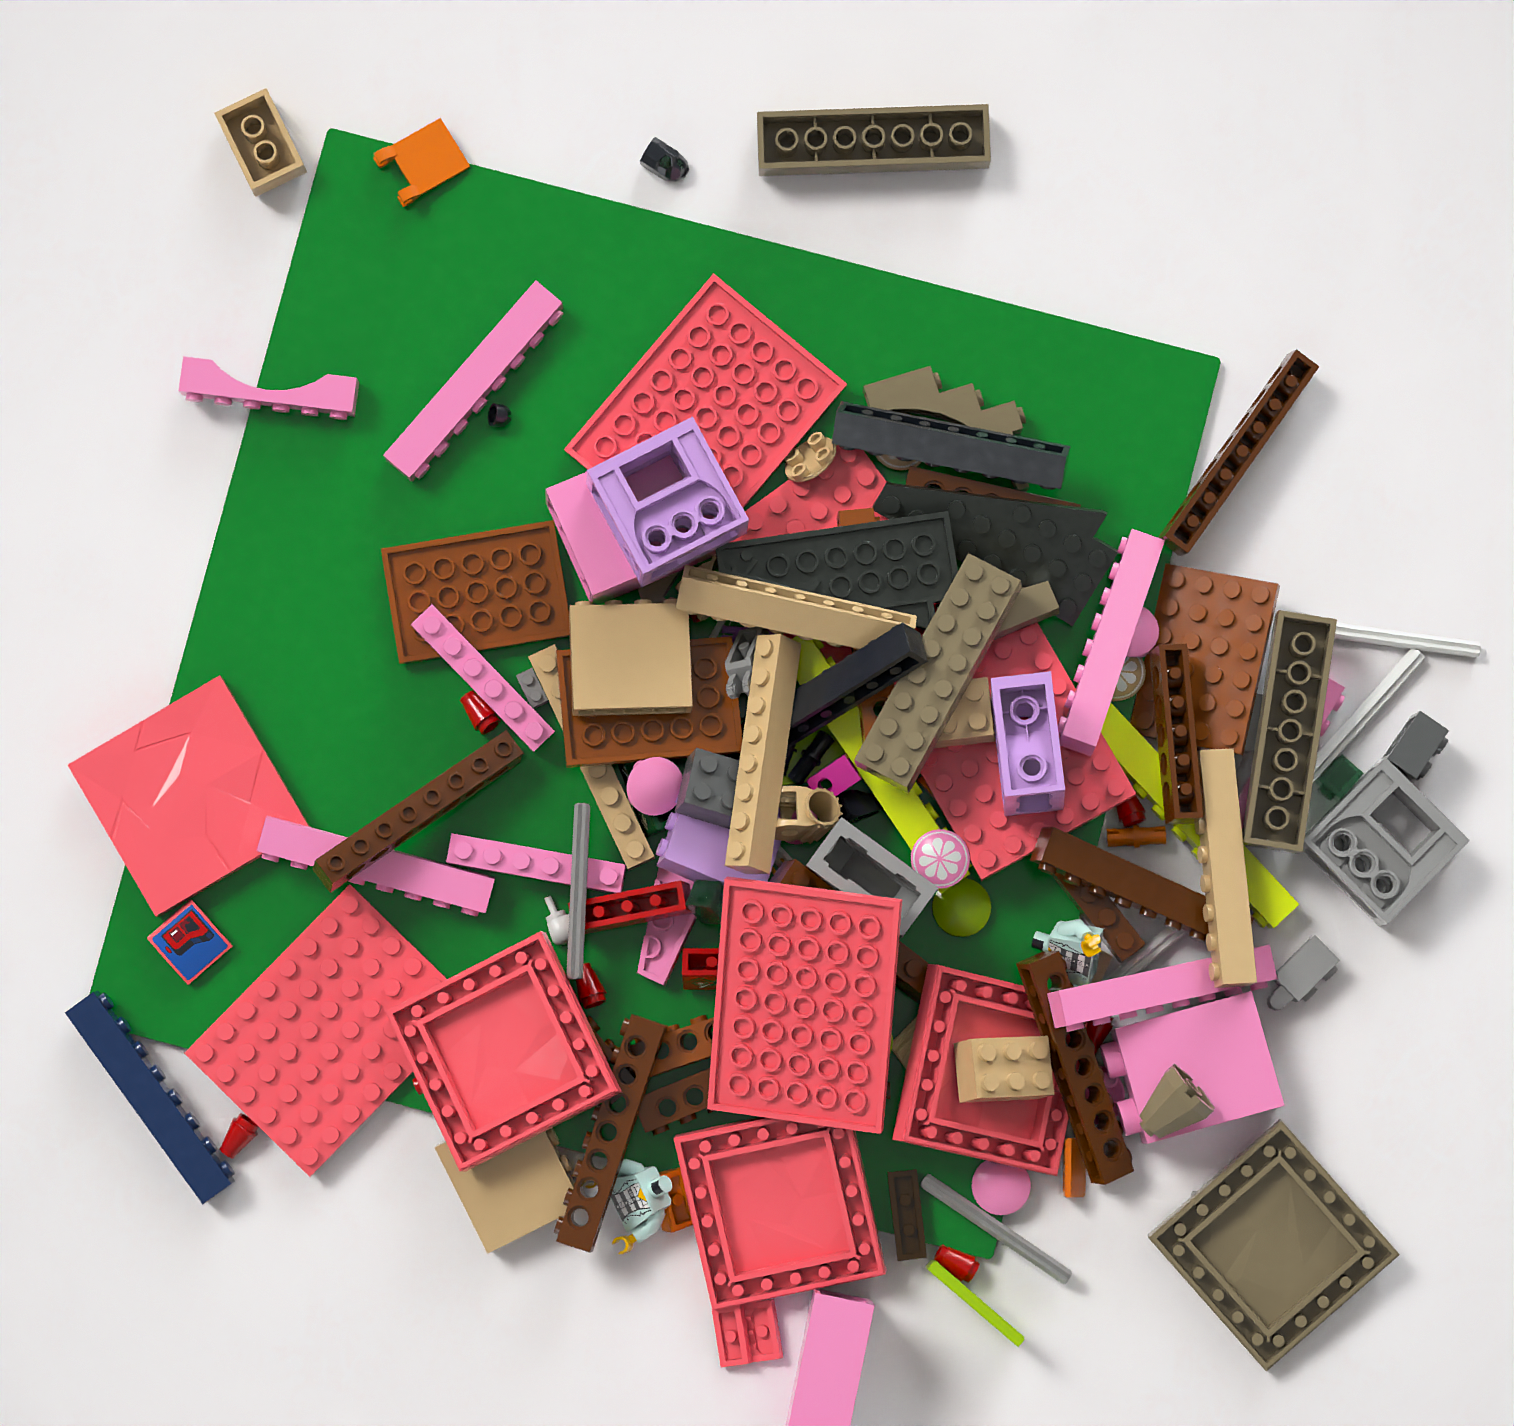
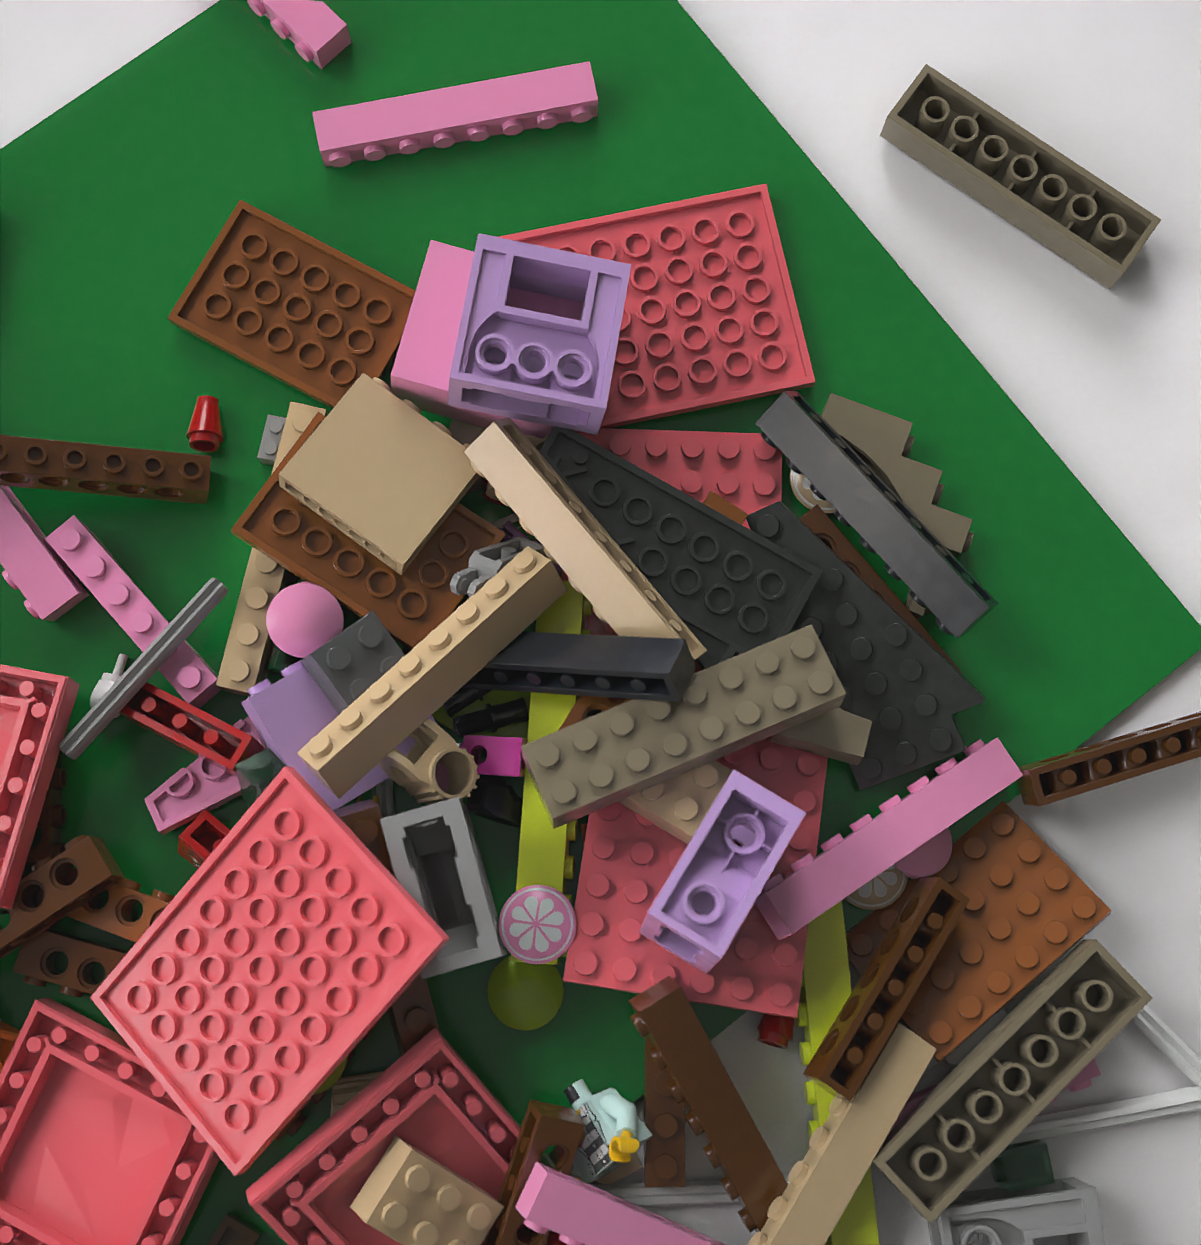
camera: 35 degrees right, 5 degrees down
(482, 678) = (228, 388): bright pink arch -> none
(498, 415) = (455, 165): black hinge -> none
(590, 989) = (87, 776): red cone -> none
(664, 161) = (799, 54): black rock -> none
(810, 458) = (723, 424): tan dish -> none
(1136, 836) = (762, 1059): orange pin -> none
(1416, 745) = (1137, 1197): dark grey brick -> none

